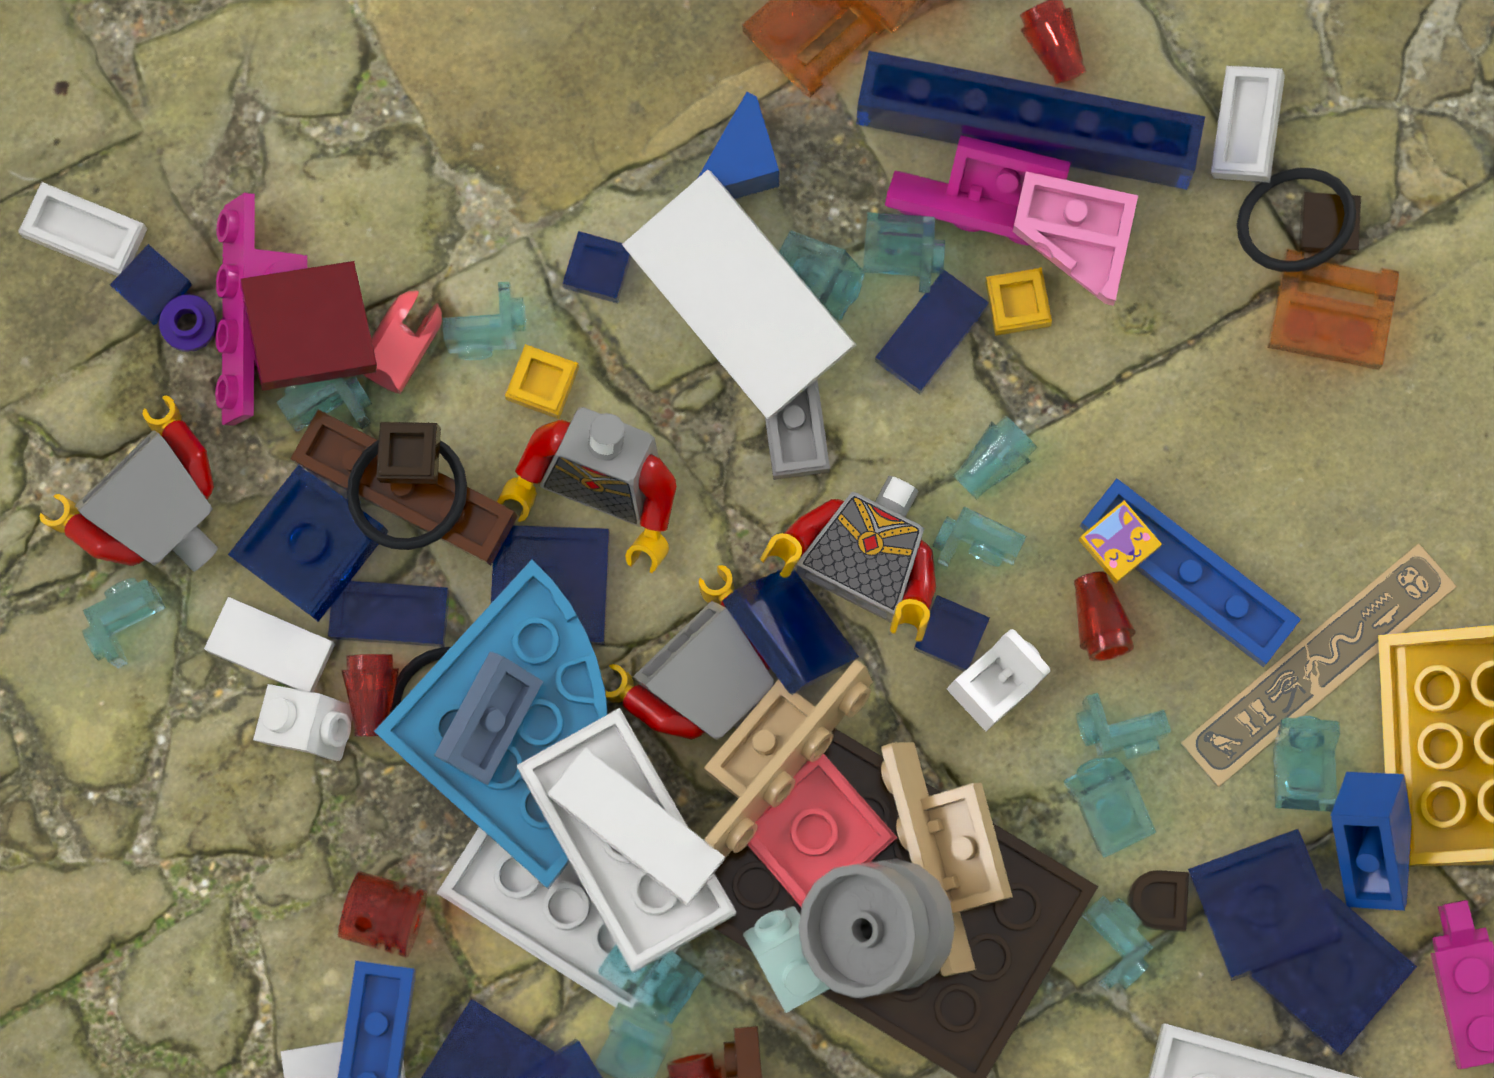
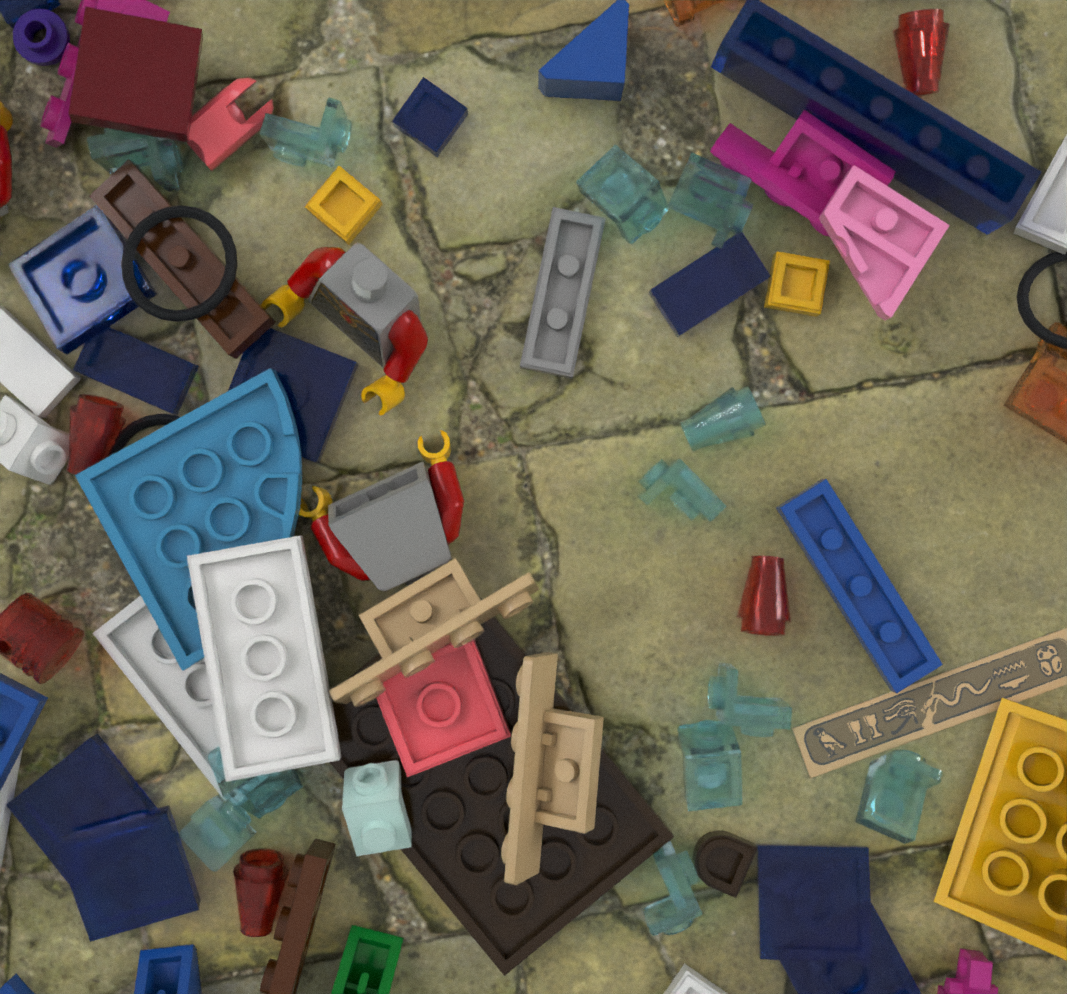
camera: 15 degrees right, 10 degrees up
(408, 452) = (188, 229): dark brown tile -> none
(488, 718) = (174, 504): sand blue plate -> none
(636, 826) = (272, 653): white tile -> none
(739, 294) = (545, 186): white tile -> none
(790, 630) = (481, 515): clear blue tile -> none
(865, 554) = (576, 468): torso -> none
(876, 927) = (458, 825): light grey wheel -> none
(952, 633) = (627, 563): clear blue tile -> none
(999, 679) = (654, 622): white bracket -> none
(1120, 542) = (808, 540): tile -> none
(1373, 839) = (932, 882): blue slope -> none

